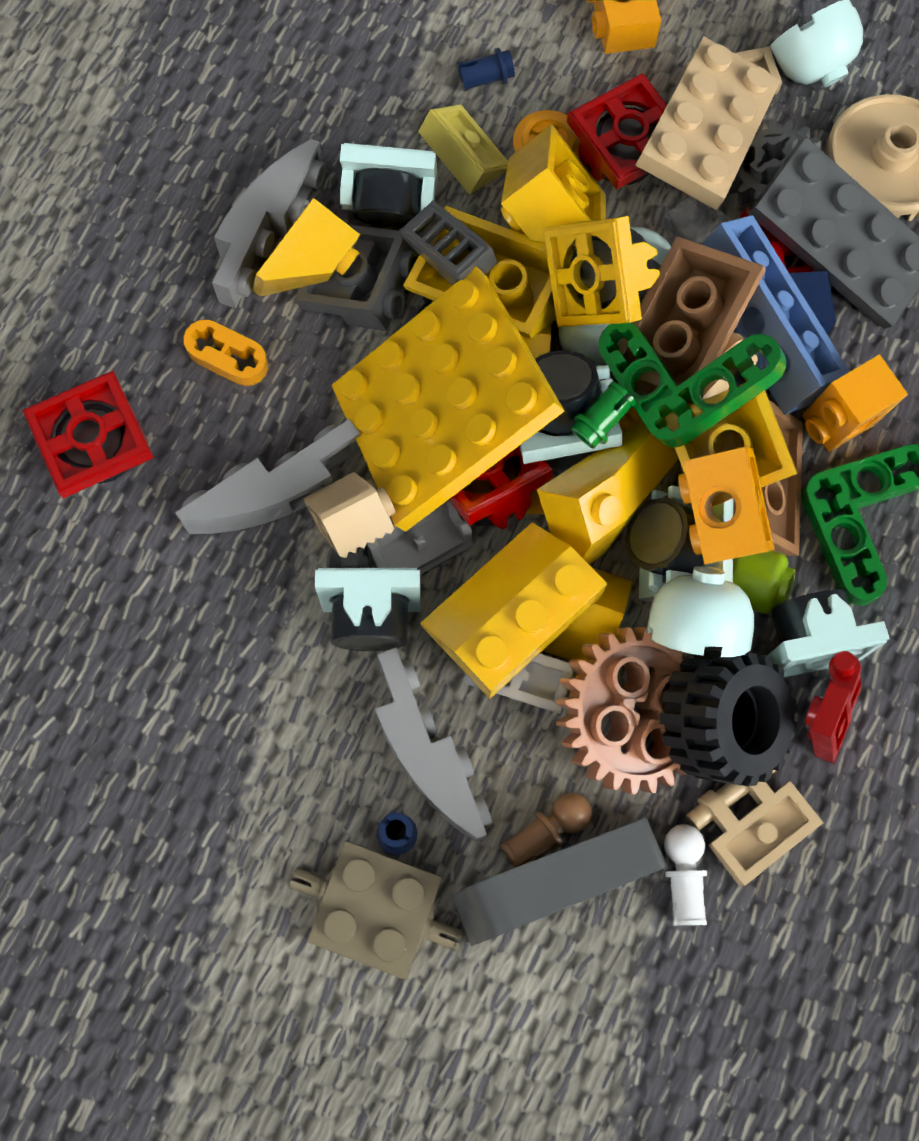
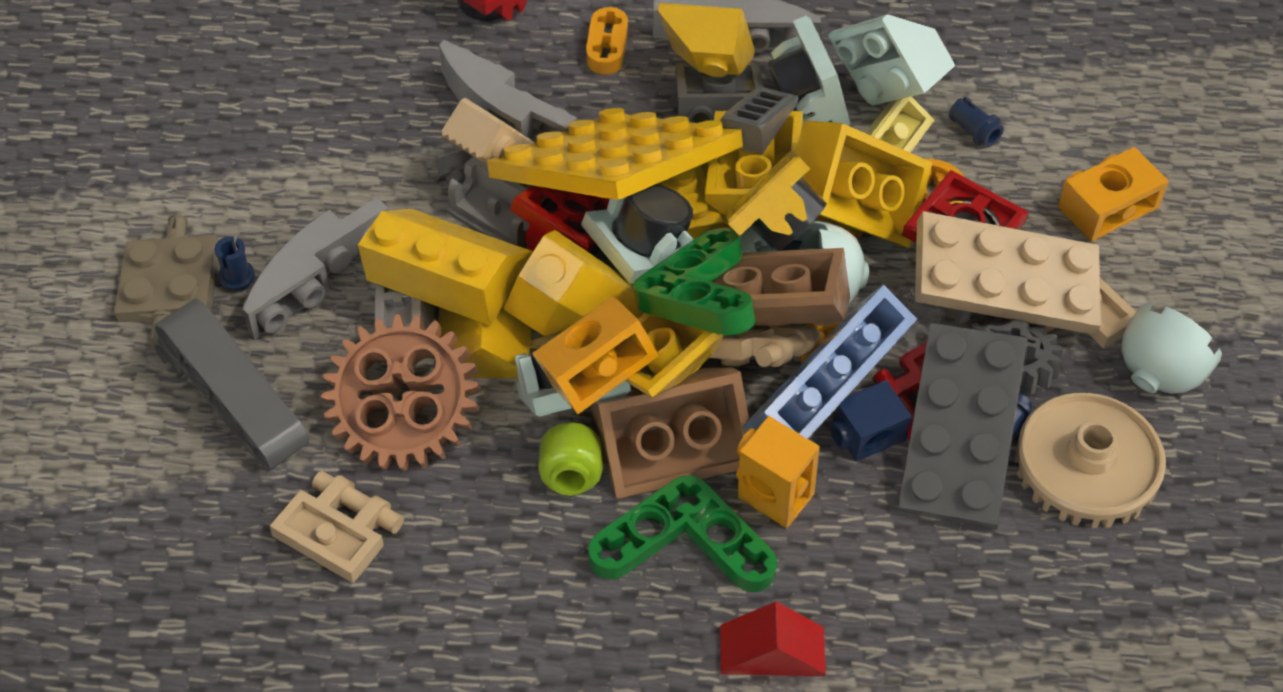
camera: 70 degrees right, 20 degrees down
(369, 605) = (414, 173): piece -> none
(411, 99) = (891, 57): none -> light aqua slope
(569, 815) = (292, 383): medium nougat pin -> none
(602, 415) = (627, 239): green pin -> none
(685, 847) = (290, 477): white pin -> none
(702, 613) = (494, 383): light aqua cylinder -> none
(729, 717) = (372, 460): black tyre -> none
(819, 627) = (525, 506): light aqua piece -> none
(832, 714) = (444, 539): red plate -> none

